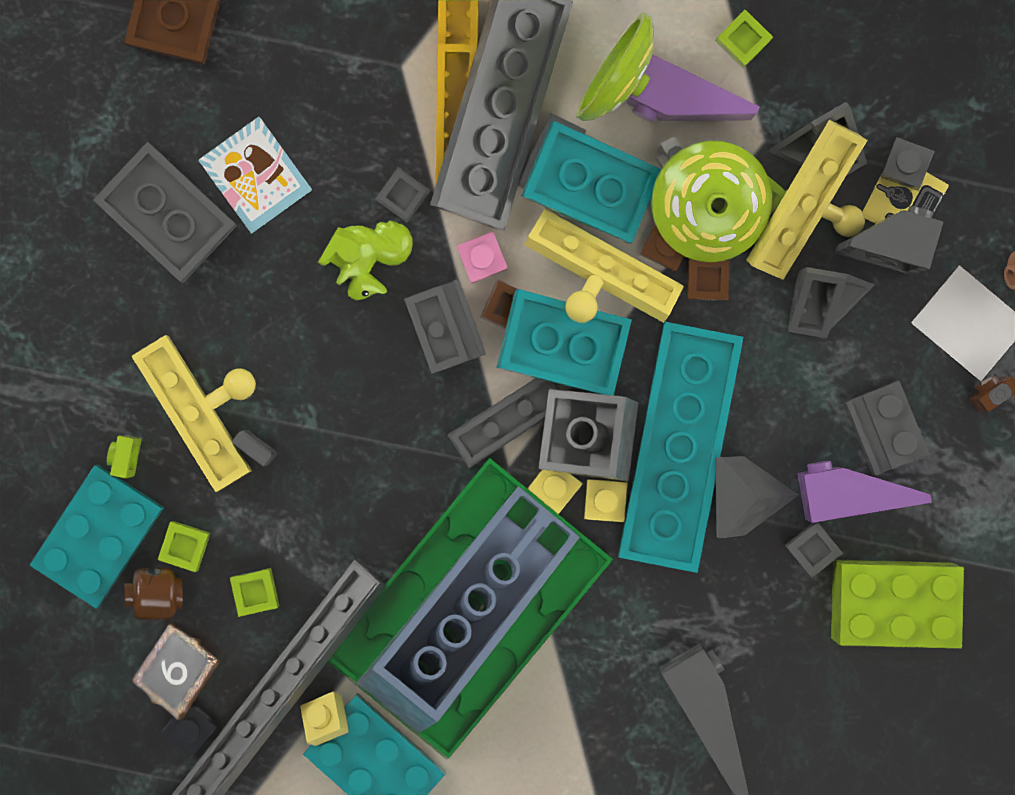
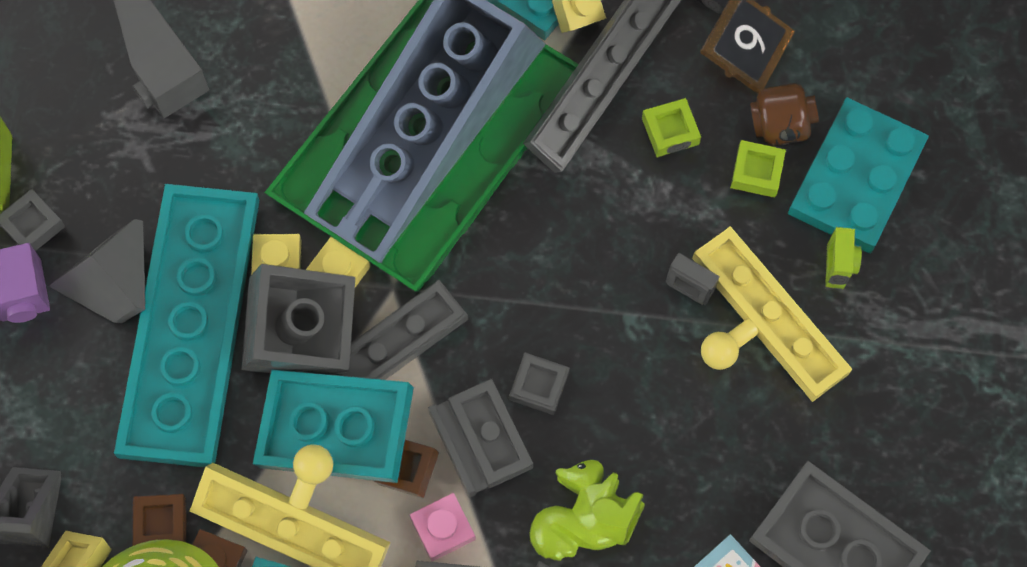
camera: 170 degrees right, 20 degrees down
(392, 371) = (539, 383): none -> dark grey tile

